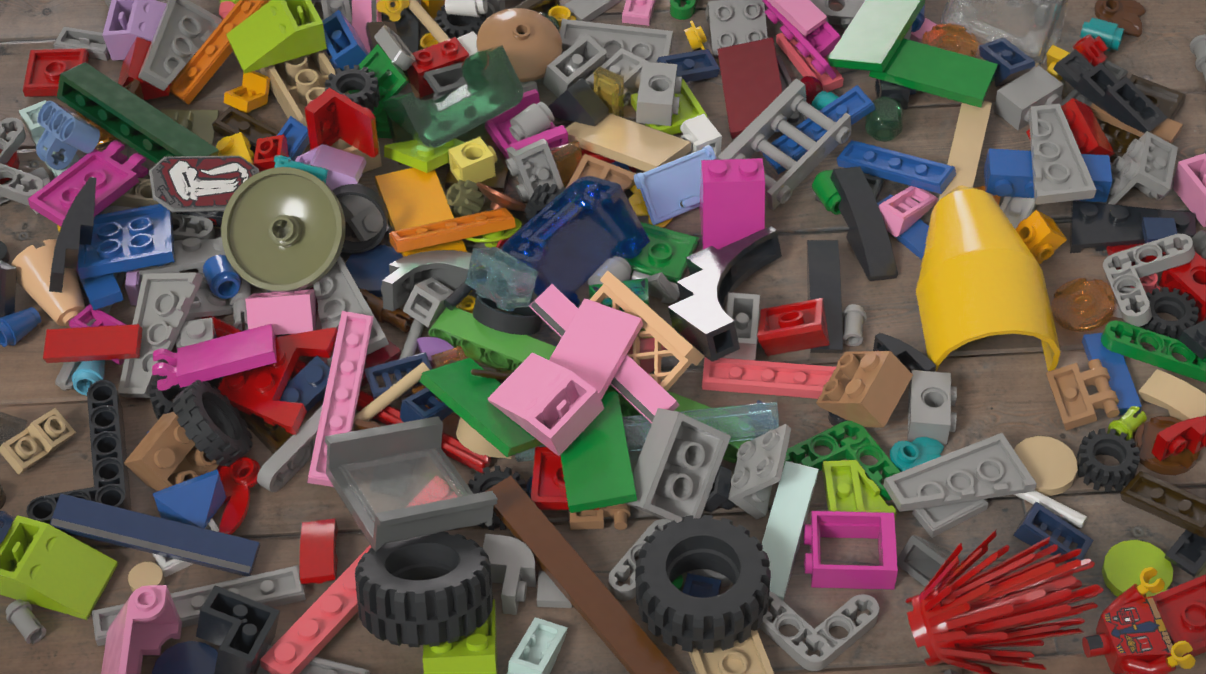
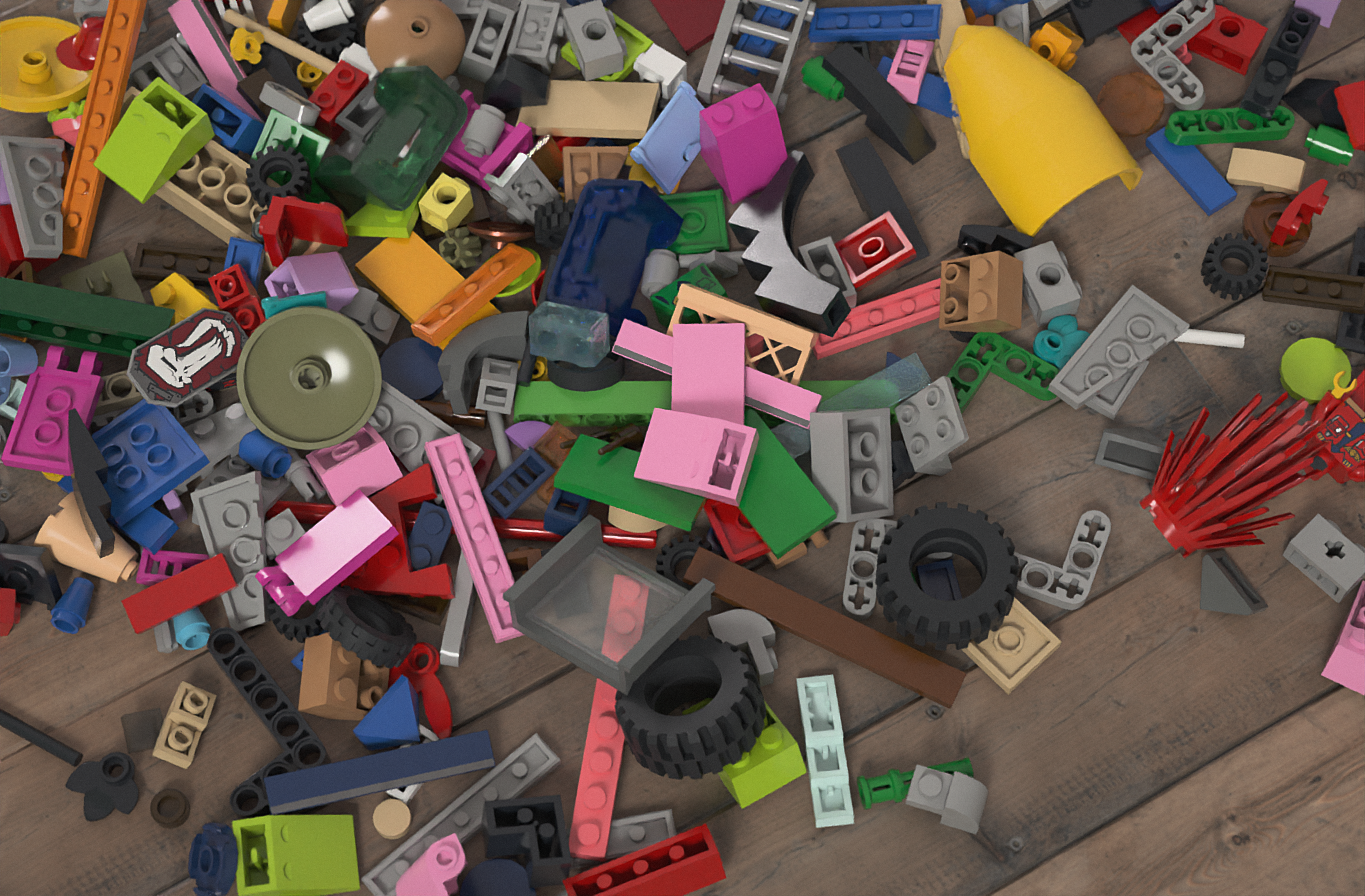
camera: 25 degrees left, 15 degrees up
(251, 94) = (149, 220): light orange bracket -> none
(318, 551) = (548, 709): red slope -> none
(375, 198) = (378, 298): black tyre -> none
(391, 394) = (524, 506): tan bar -> none
(549, 594) = (794, 647): light grey tile -> none
(610, 90) = (544, 57): clear yellow tile -> none
(787, 523) = (981, 468): light aqua slope -> none
(850, 489) = (1021, 410): lime wing -> none
(852, 525) = (1084, 454): dark pink window -> none
(853, 319) = (923, 217): light grey pin -> none
(1047, 520) = (1201, 372): dark blue slope -> none
(1049, 463) = (1182, 292): tan tile -> none
(1072, 397) = (1171, 213): medium nougat plate -> none
(1127, 423) = (1233, 218): lime pin -> none
(1172, 304) = (1223, 70): black tyre -> none

